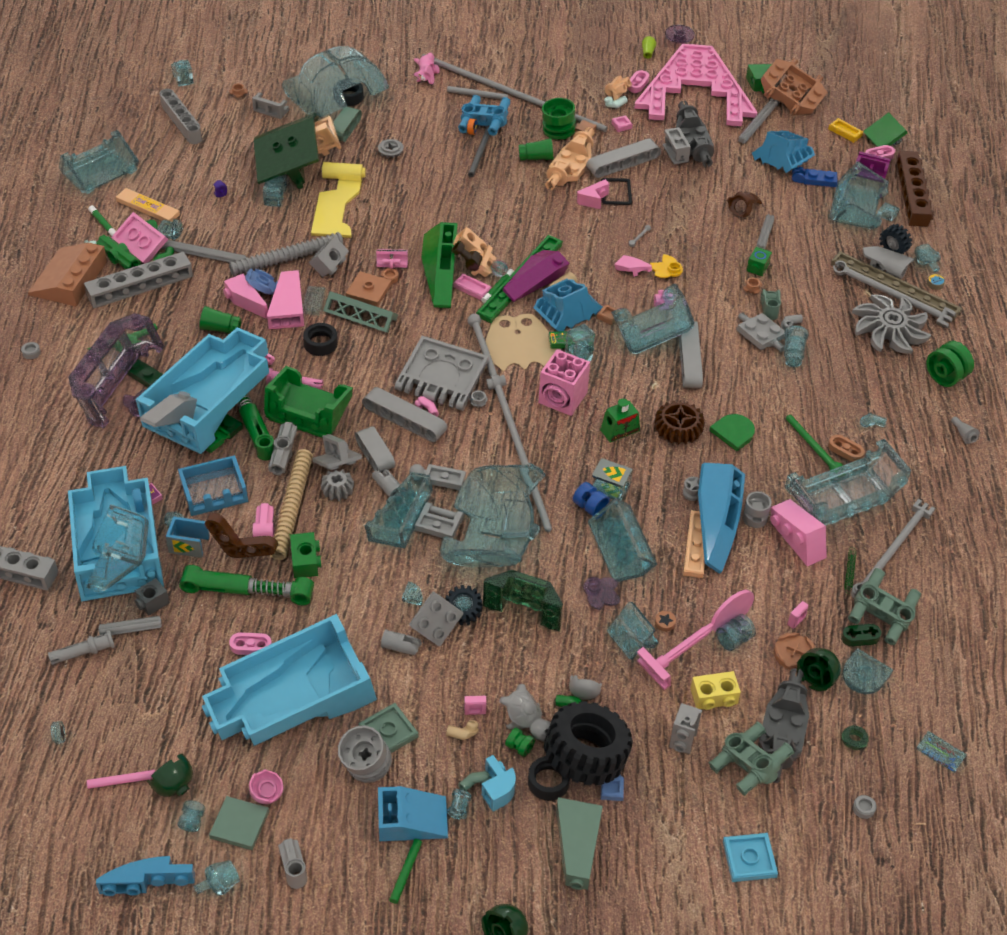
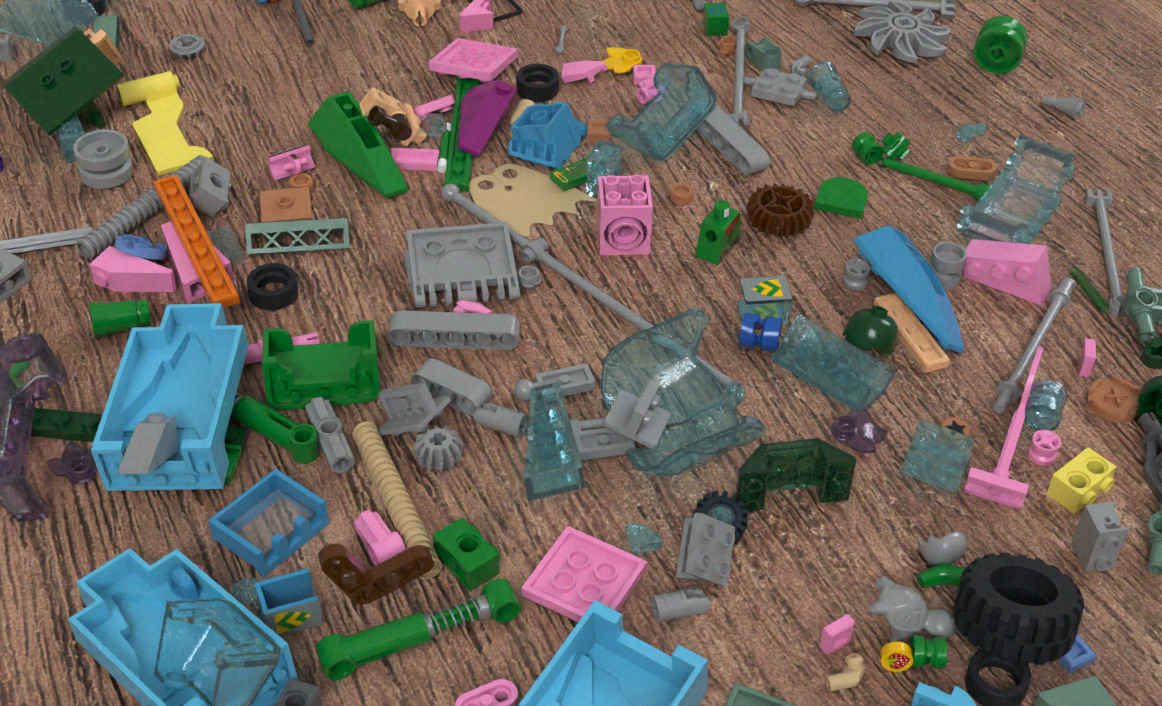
camera: 30 degrees left, 5 degrees down
(281, 212) = (103, 158): none -> light grey wheel
(291, 291) = (196, 242): none -> orange tile
(360, 601) = (583, 571): none -> bright pink plate
(465, 519) = (638, 416): none -> light grey bracket
(498, 735) = (896, 656): none -> yellow tile
(518, 254) = (442, 104): none -> bright pink plate
(562, 229) = (473, 59): none -> bright pink plate
(598, 254) = (537, 92): none -> black tyre
(626, 382) = (681, 194): none -> nougat tile
(662, 531) = (872, 329): none -> dark green cylinder
(681, 283) = (642, 72): none -> bright pink tile
(712, 344) = (741, 30): none -> light grey hinge
(716, 656) = (1044, 447): none -> bright pink wheel
(781, 403) = (867, 148): none -> green wheel
(802, 409) = (895, 146): none -> green gear
(819, 567) = (1008, 390): none -> light grey bar

